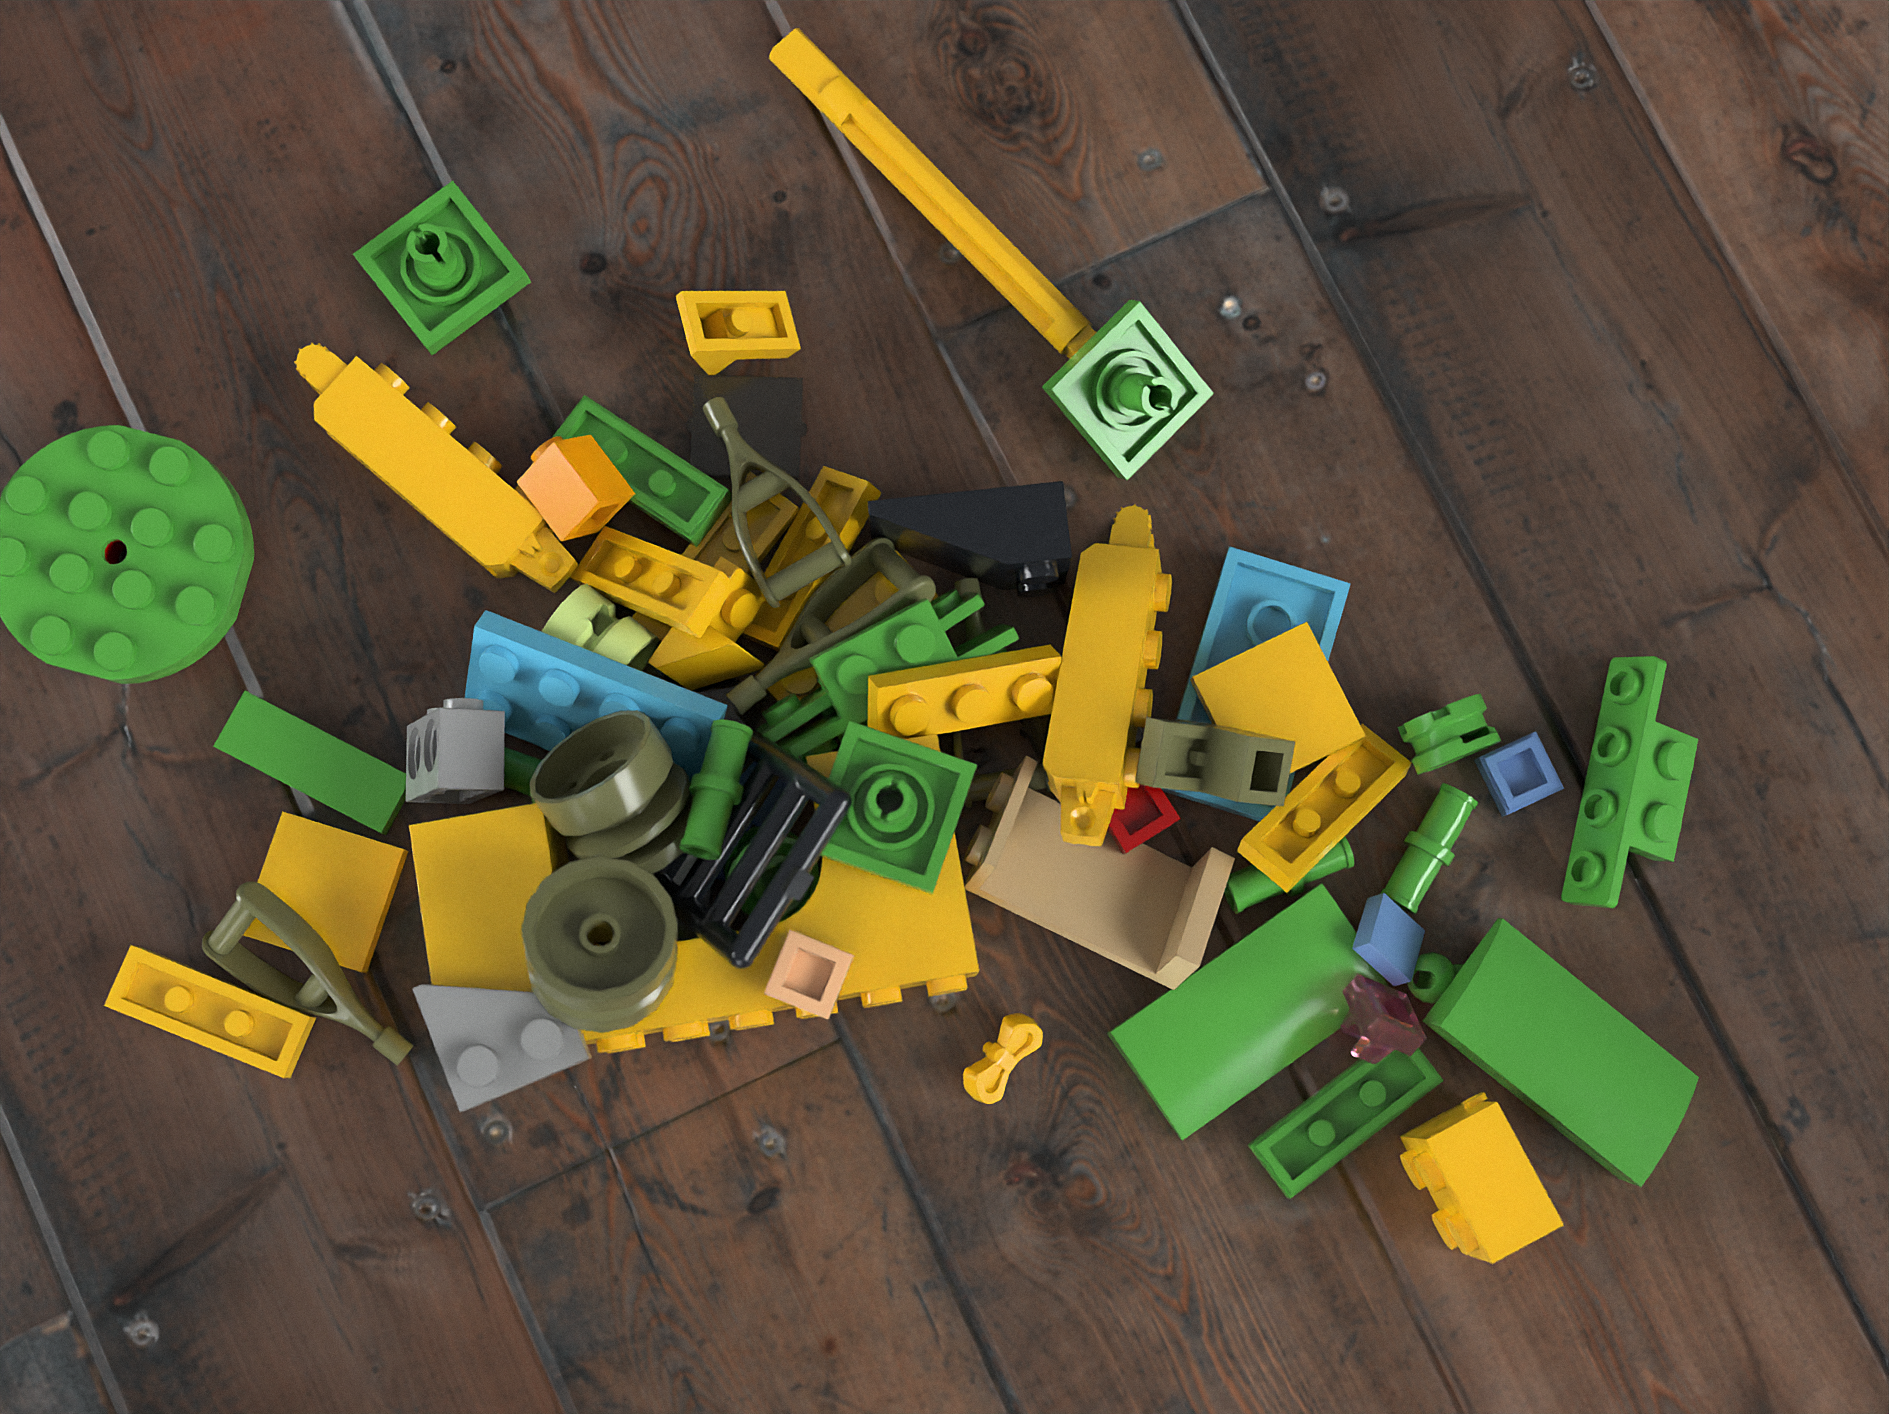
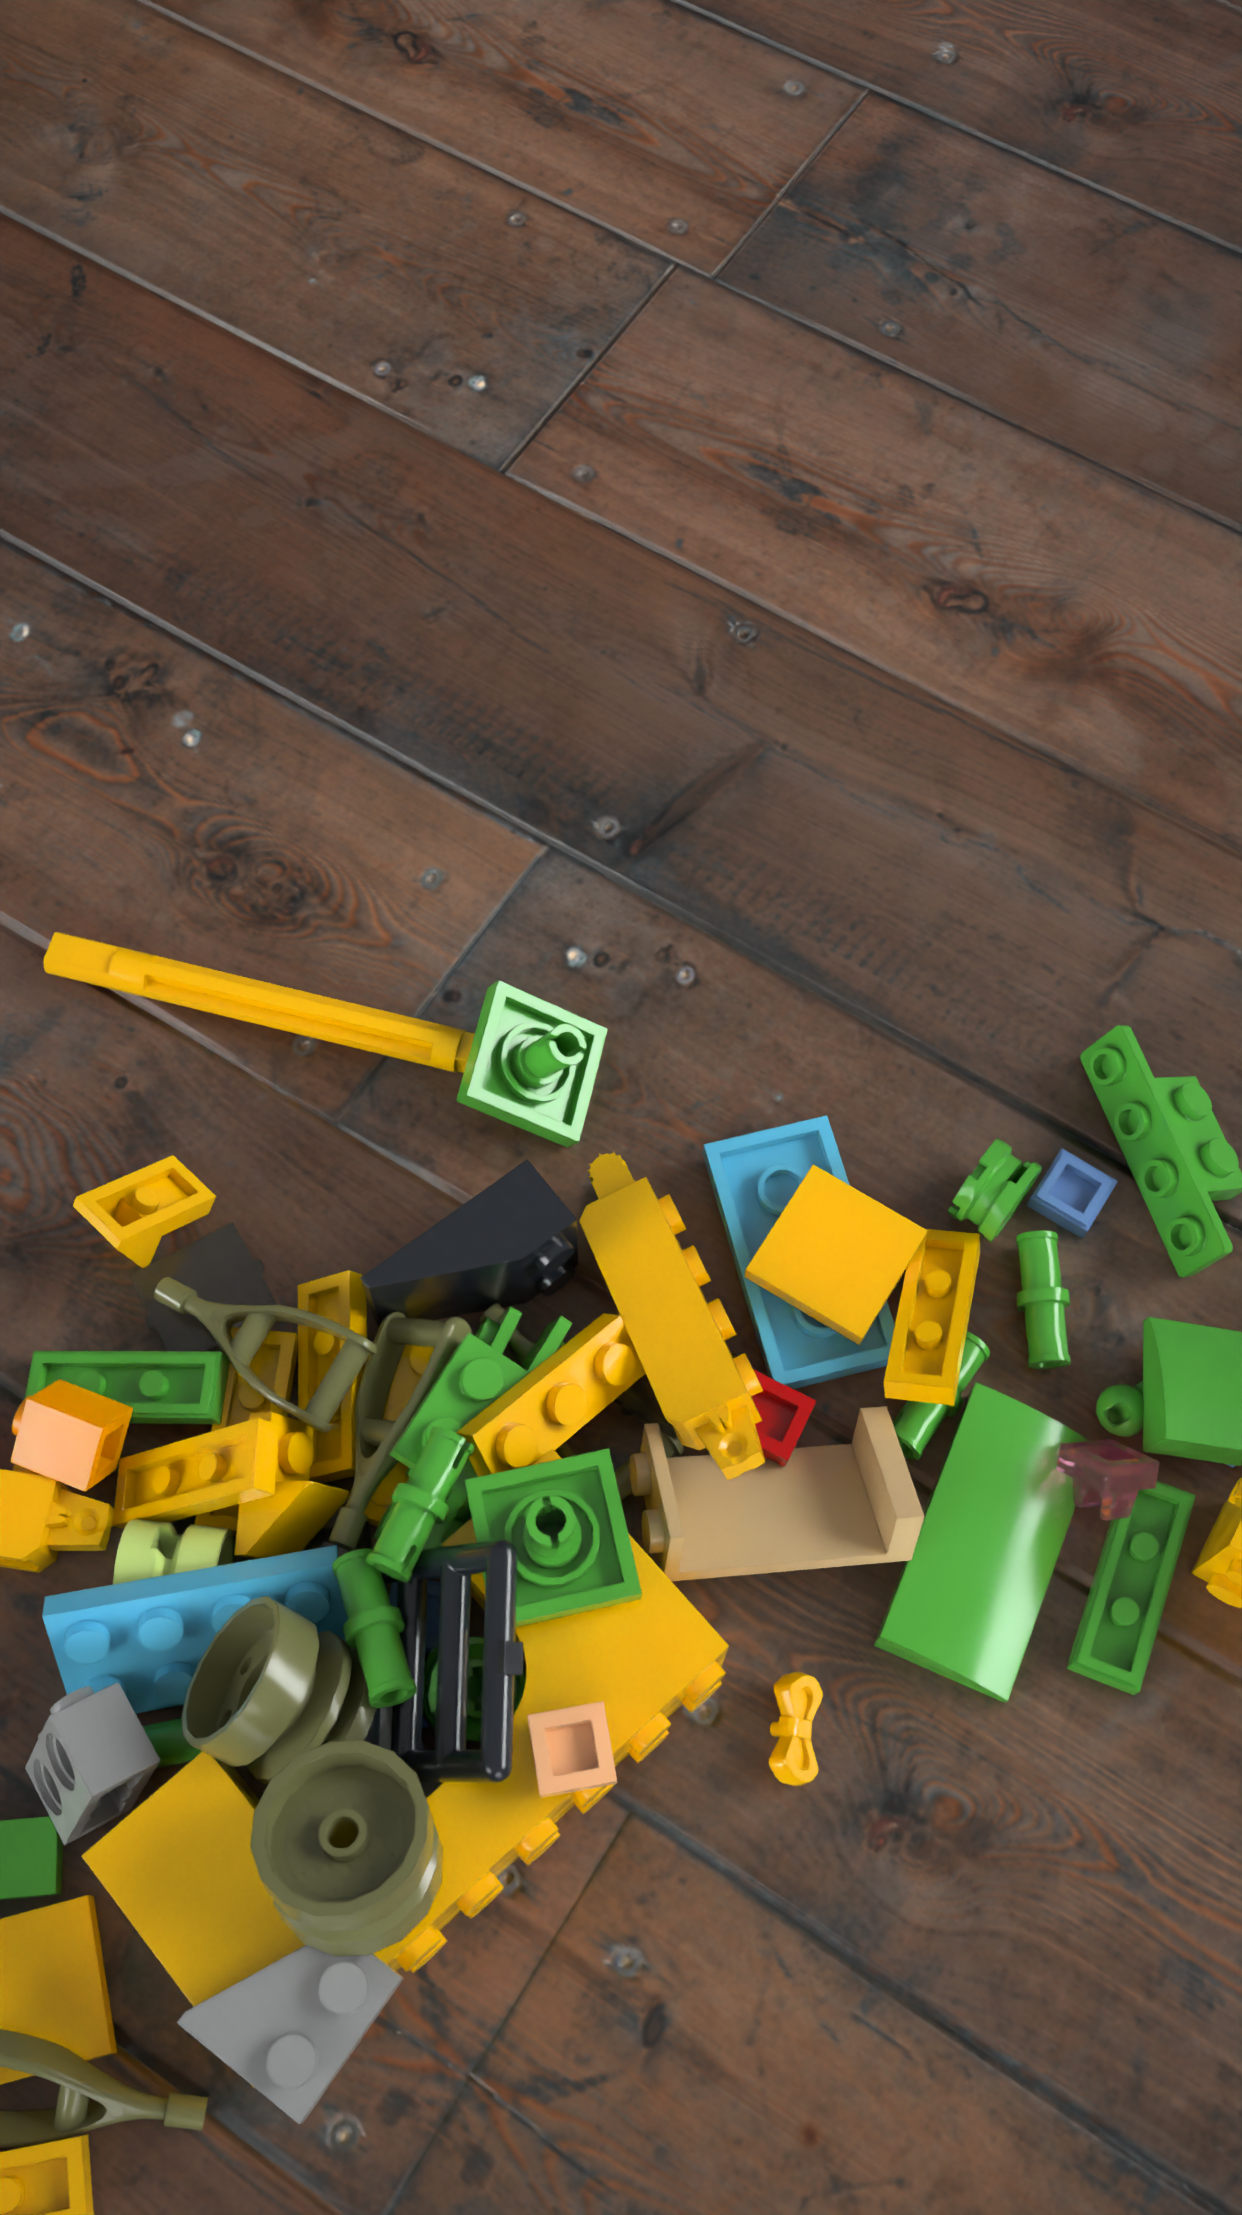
camera: 30 degrees left, 15 degrees down
(806, 716) = (420, 1504): none -> bright green pin
(1215, 761) = (816, 1323): olive brick -> none
(1388, 939) = (1065, 1398): medium blue tile -> none

